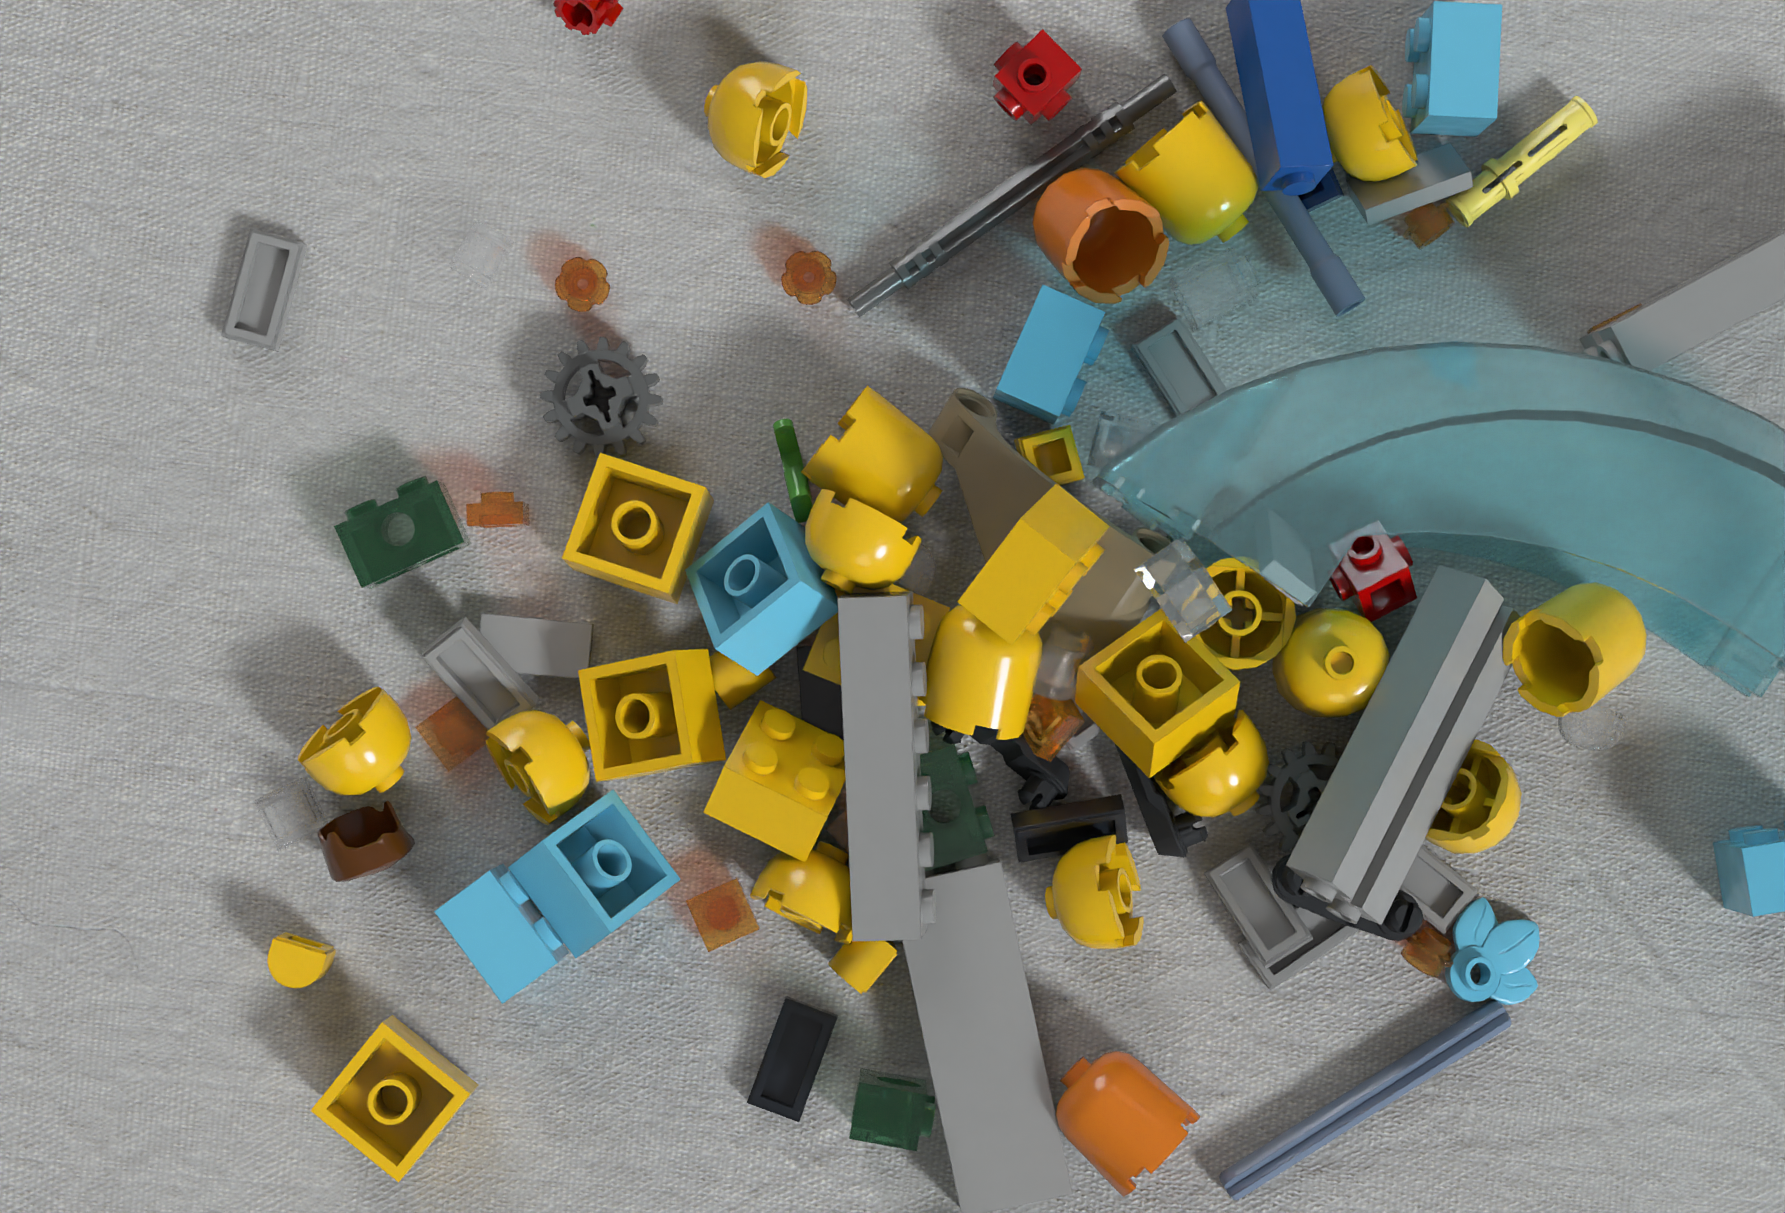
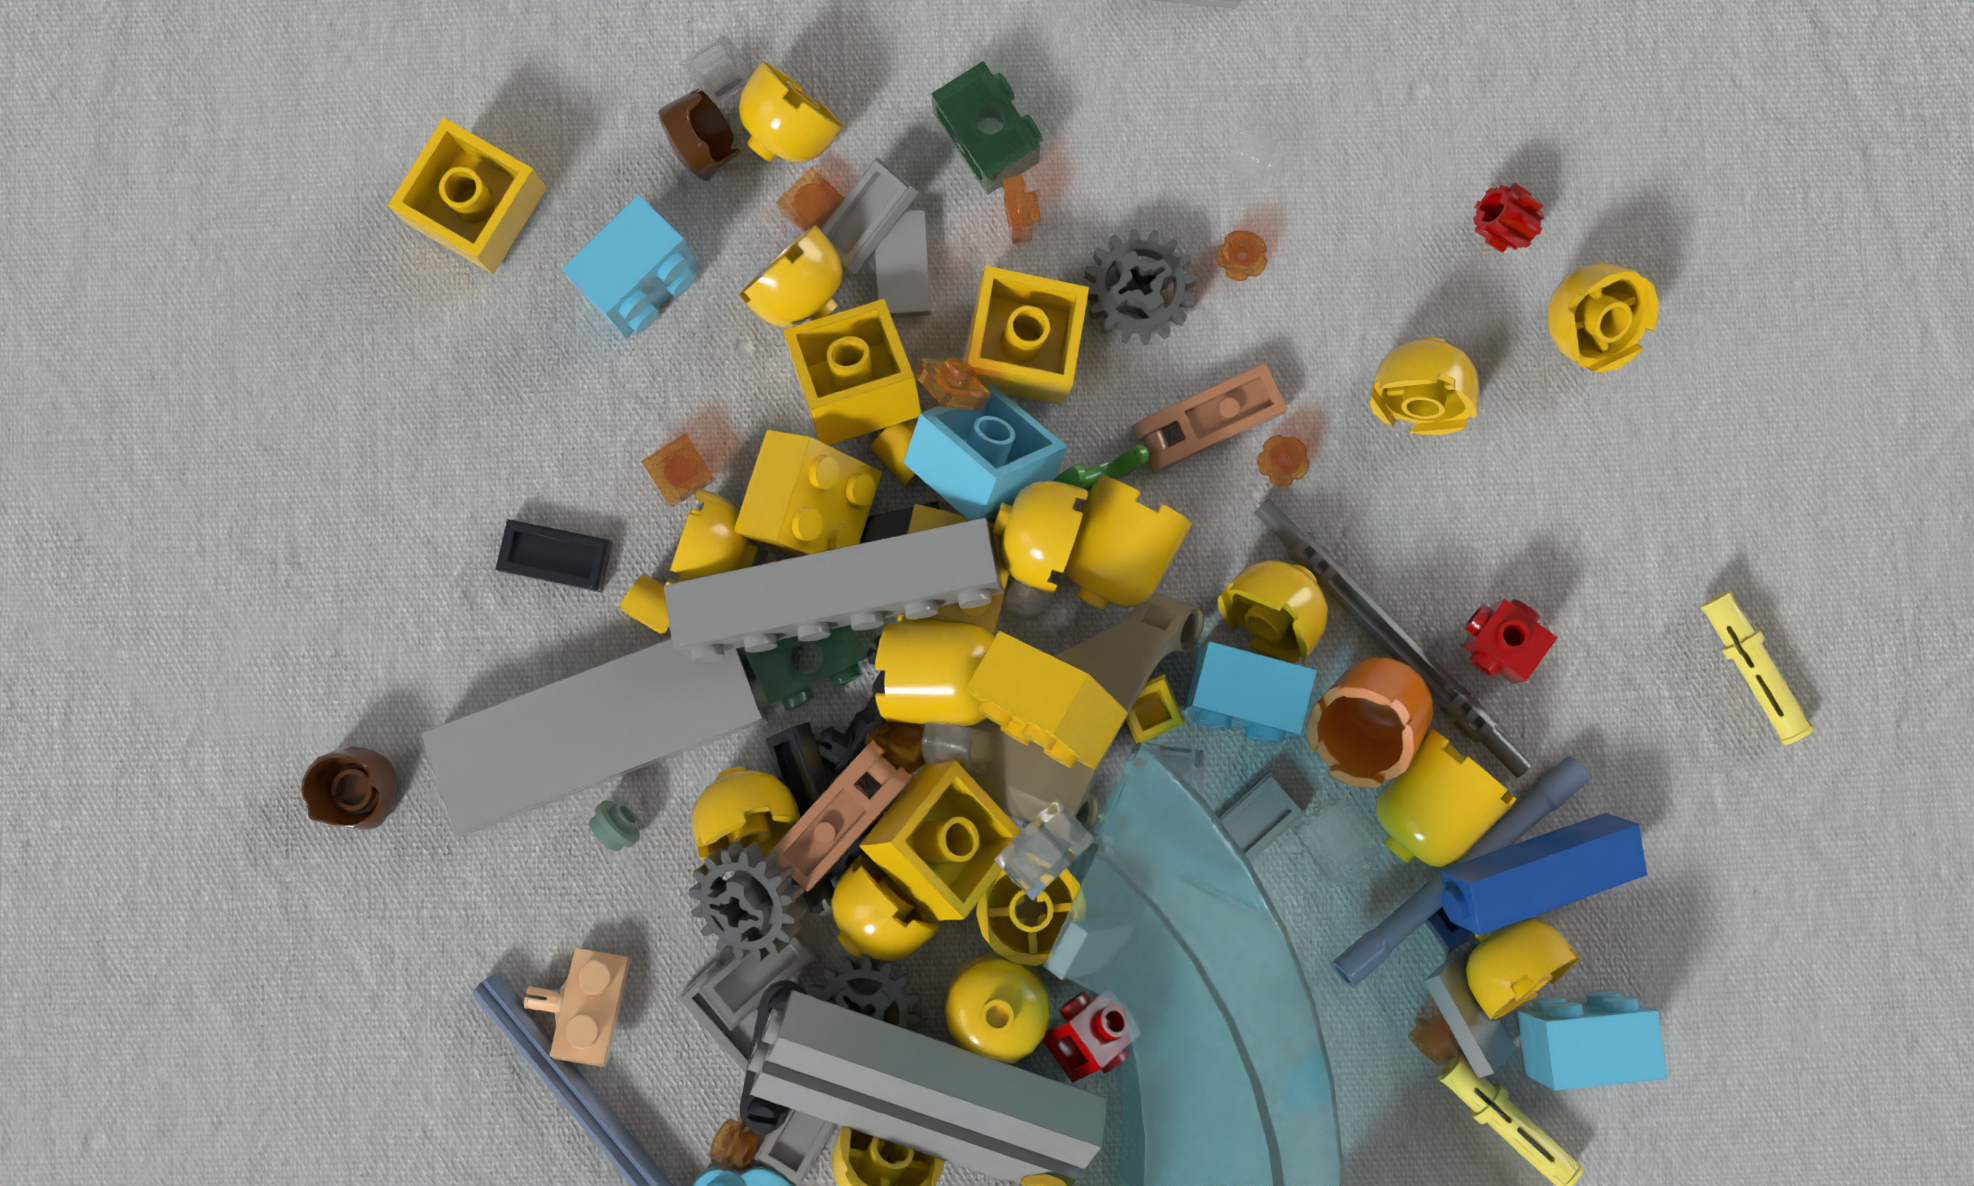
camera: 85 degrees right, 5 degrees down
(298, 960) = (584, 94): yellow brick -> none
(594, 873) = (697, 341): medium azure brick -> none
(686, 611) = (952, 383): none -> clear orange plate
(752, 344) = (1211, 417): none -> nougat plate
(891, 1110) = (513, 649): clear green brick -> none
(966, 307) = (1277, 607): none -> yellow cylinder
(1085, 1030) = (615, 825): none -> sand green plate
(1117, 795) = (839, 817): none -> nougat plate
(1121, 1117) = (534, 870): orange cylinder -> none
(1186, 901) = (747, 901): none -> dark grey gear
(1266, 1086) = (585, 1006): none -> light nougat plate

